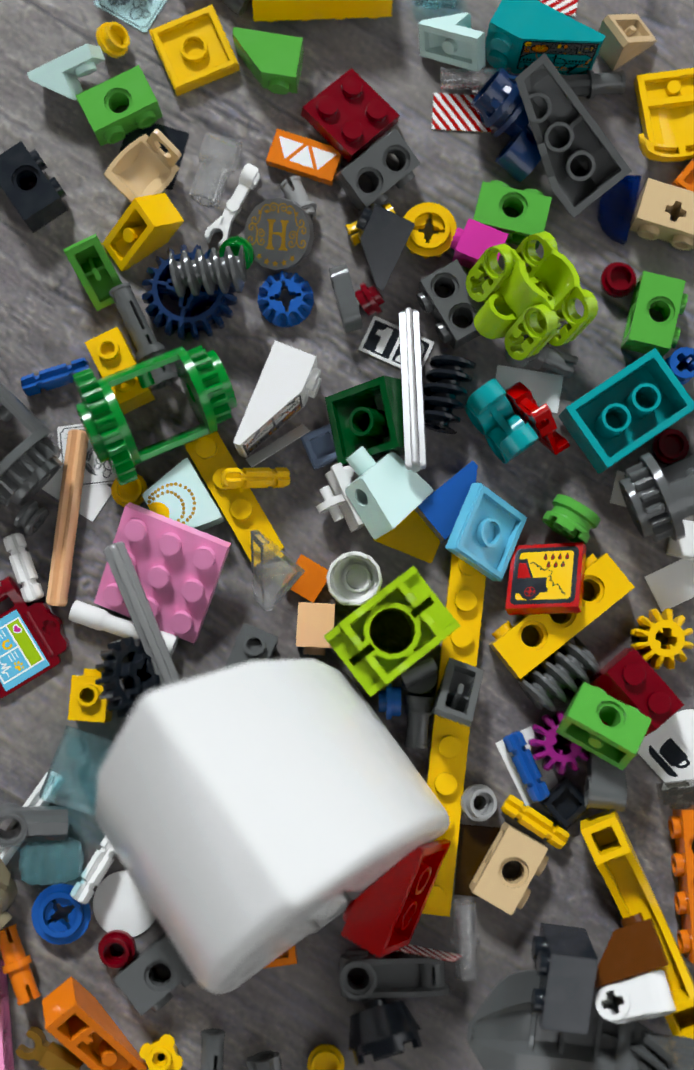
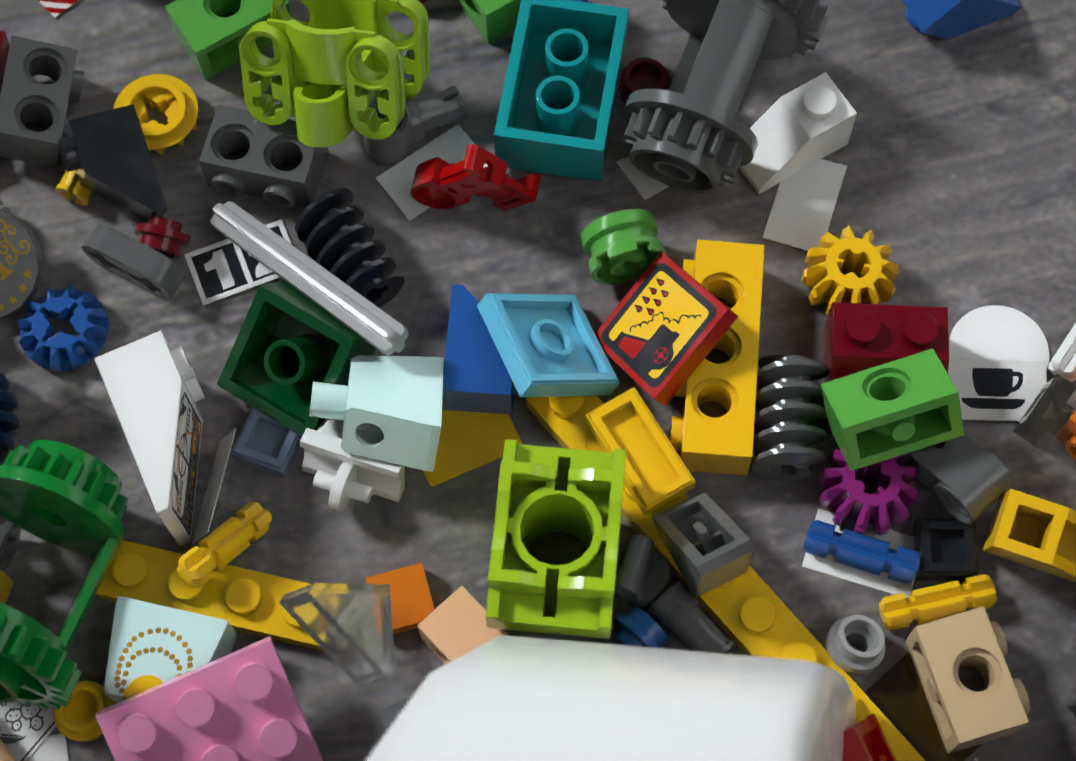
camera: 45 degrees left, 15 degrees down
(354, 578) = (453, 540): white hair -> none
(473, 241) = (219, 74): dark pink brick -> none
(477, 623) = (652, 465): none -> yellow tile
(496, 420) = (424, 226): teal piece -> none

